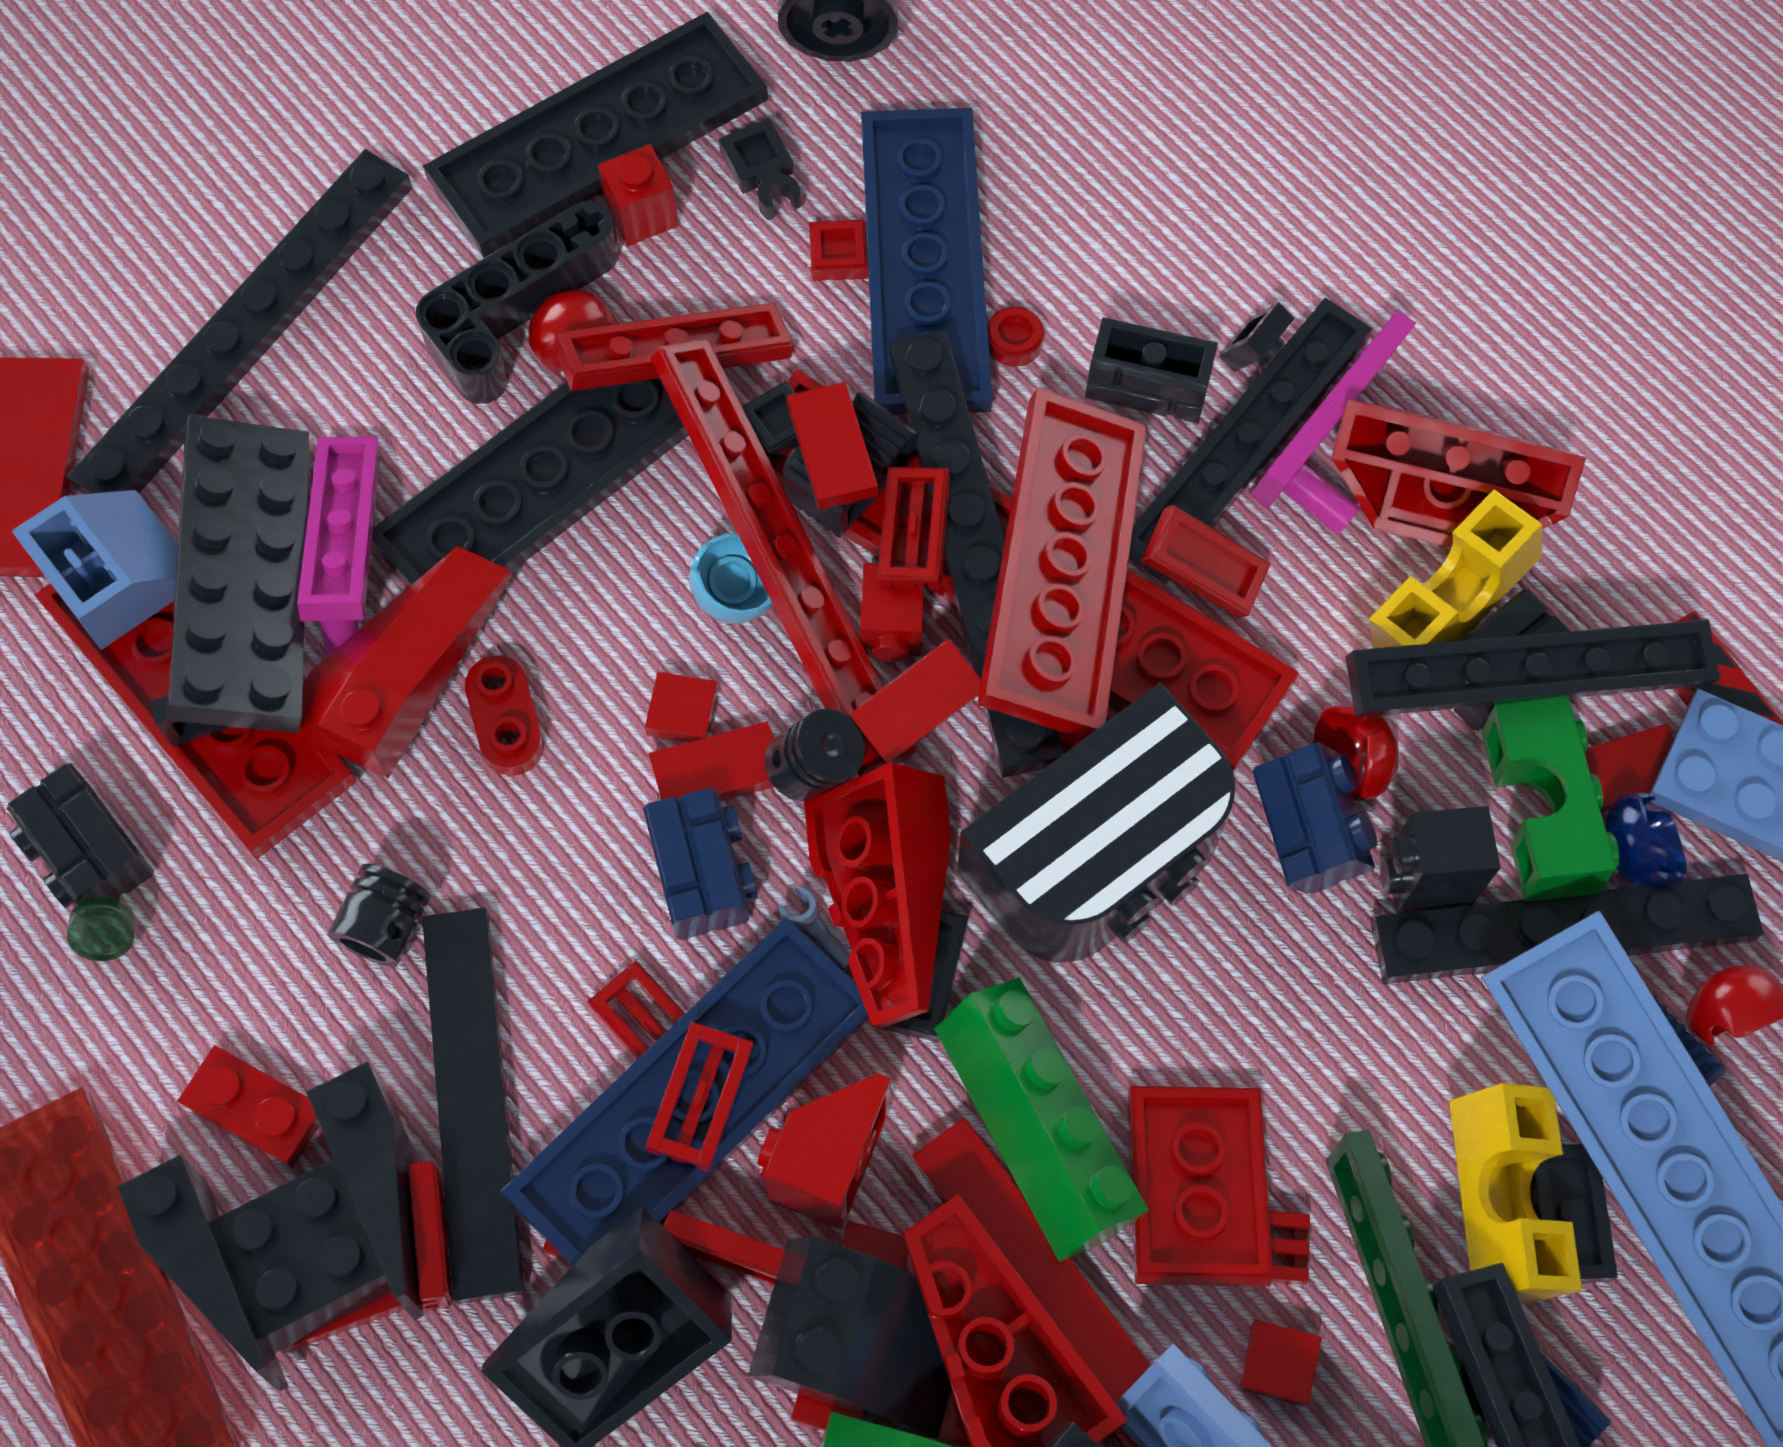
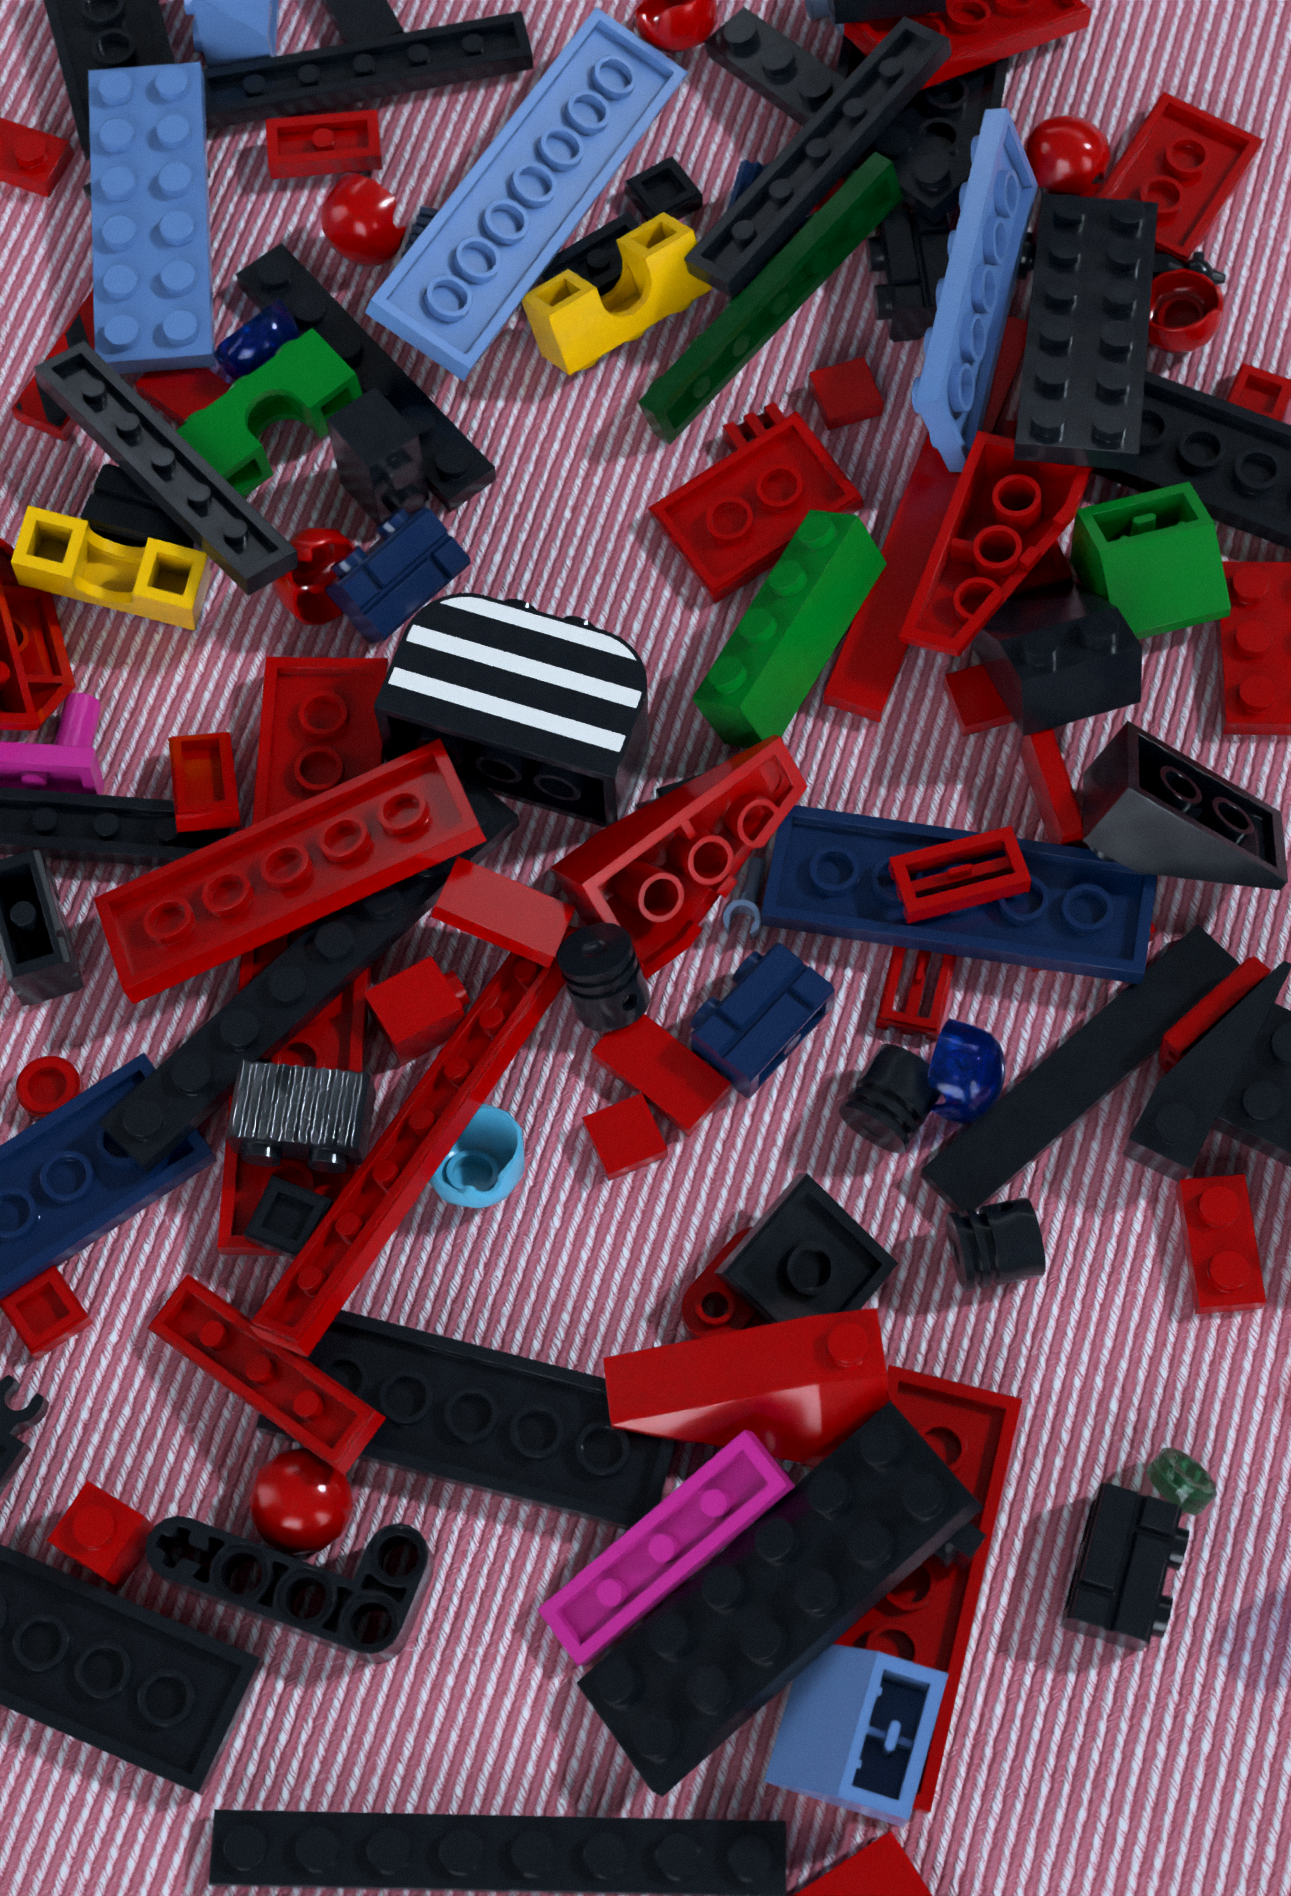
camera: 120 degrees left, 0 degrees up
(471, 763) = (805, 1258): none -> black tile
(529, 982) = (967, 1071): none -> clear blue hair
(554, 917) = (890, 1099): none -> black piece
(825, 1151) = (930, 750): red slope -> none
(832, 446) = (307, 1112): red tile -> none
(911, 574) = (347, 1034): red tile -> none
(1631, 1342) = (665, 190): none -> black tile

